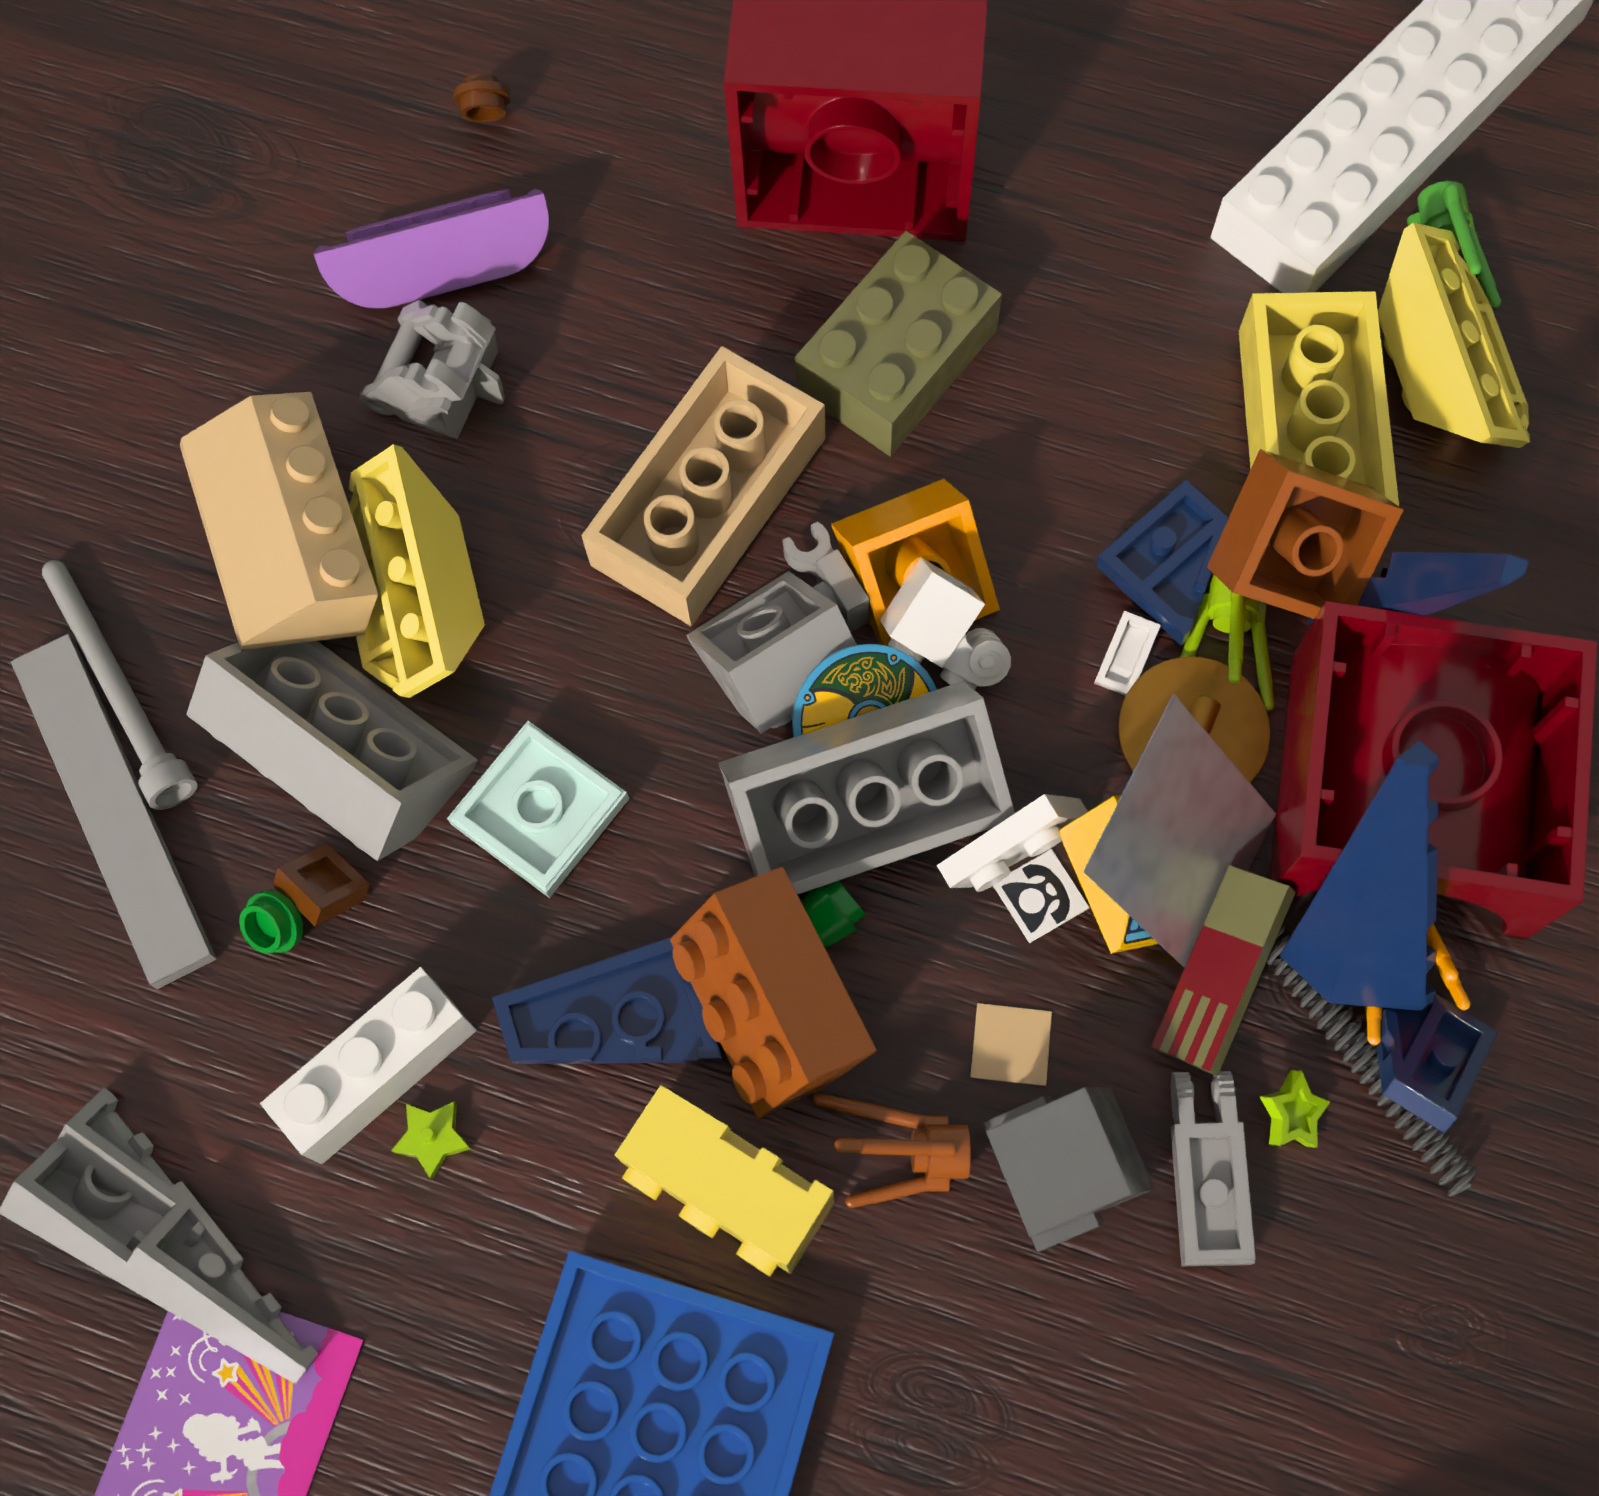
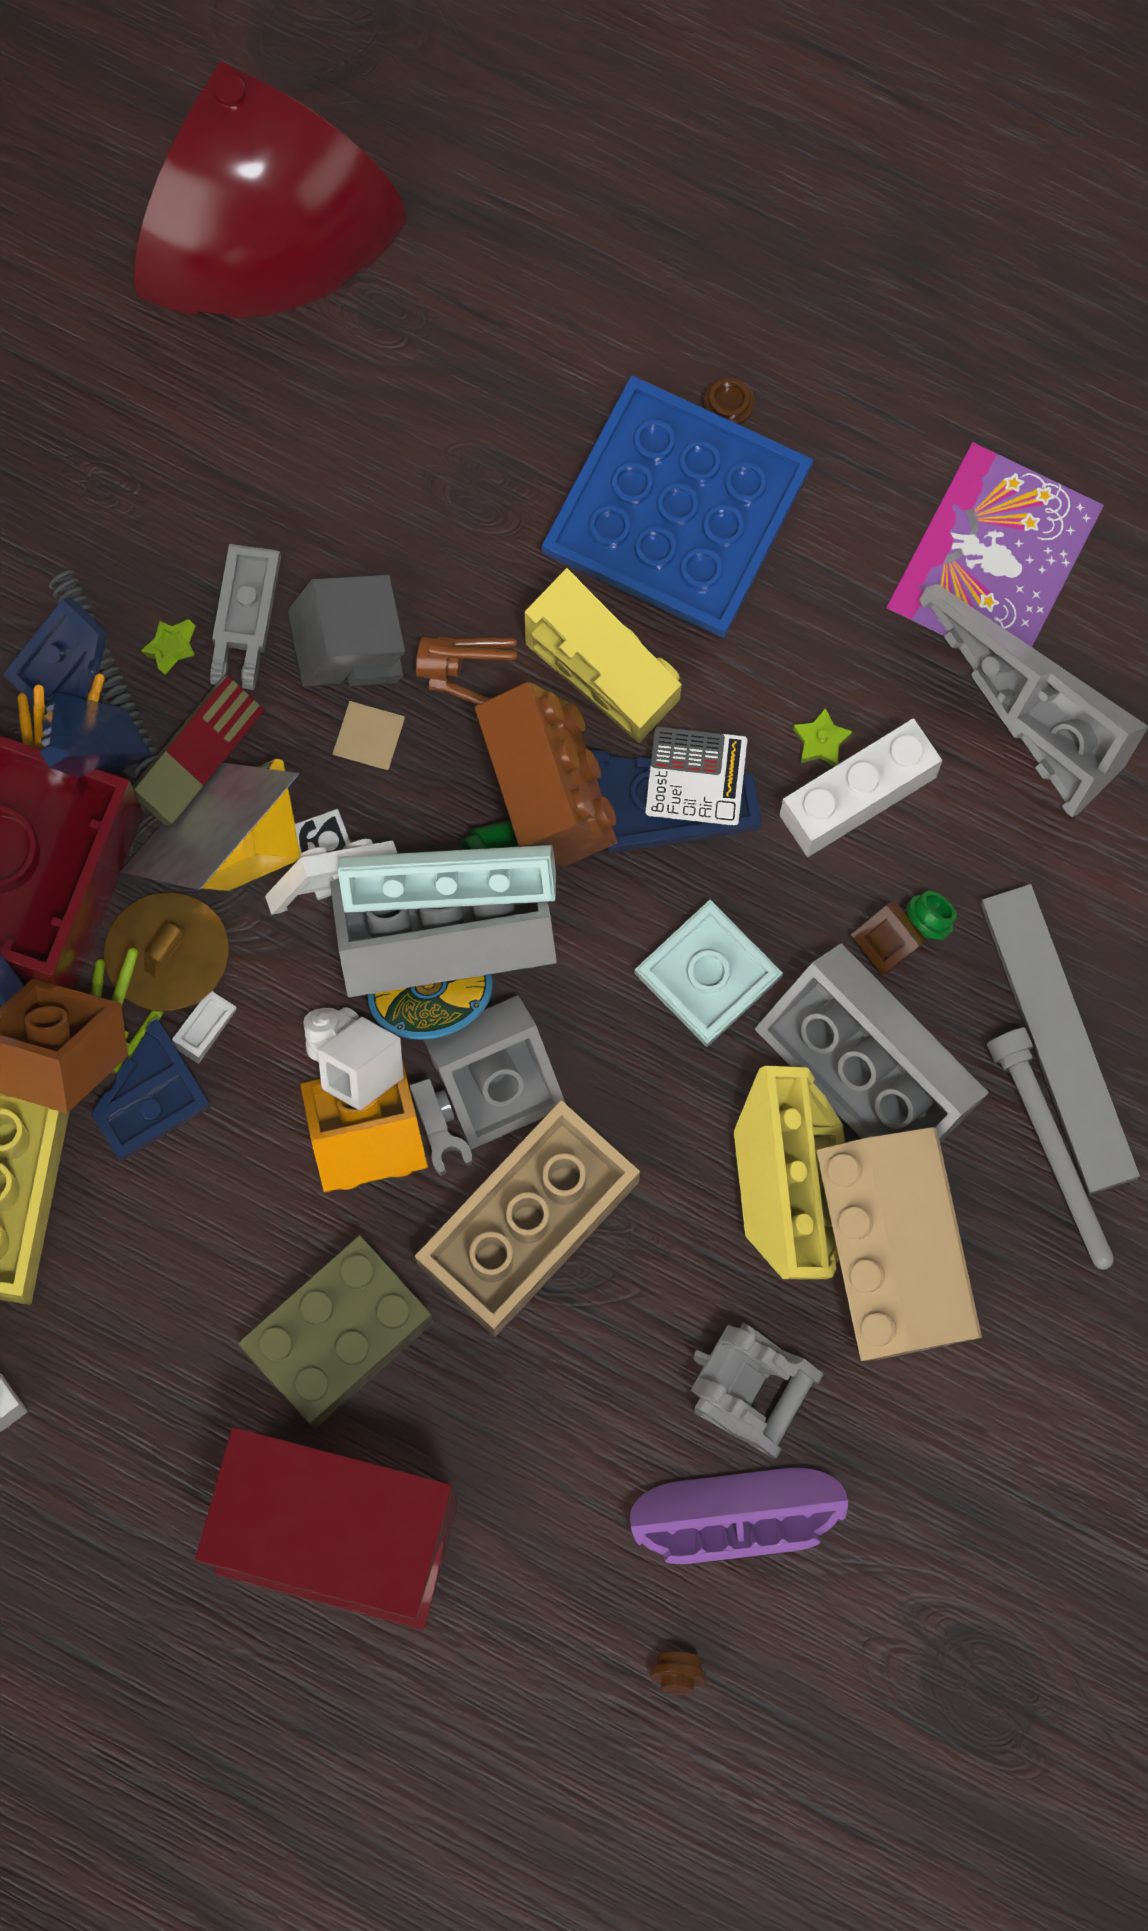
camera: 175 degrees left, 5 degrees up
(582, 1045) = (696, 776): none -> sticker
(867, 817) = (447, 878): none -> light aqua brick

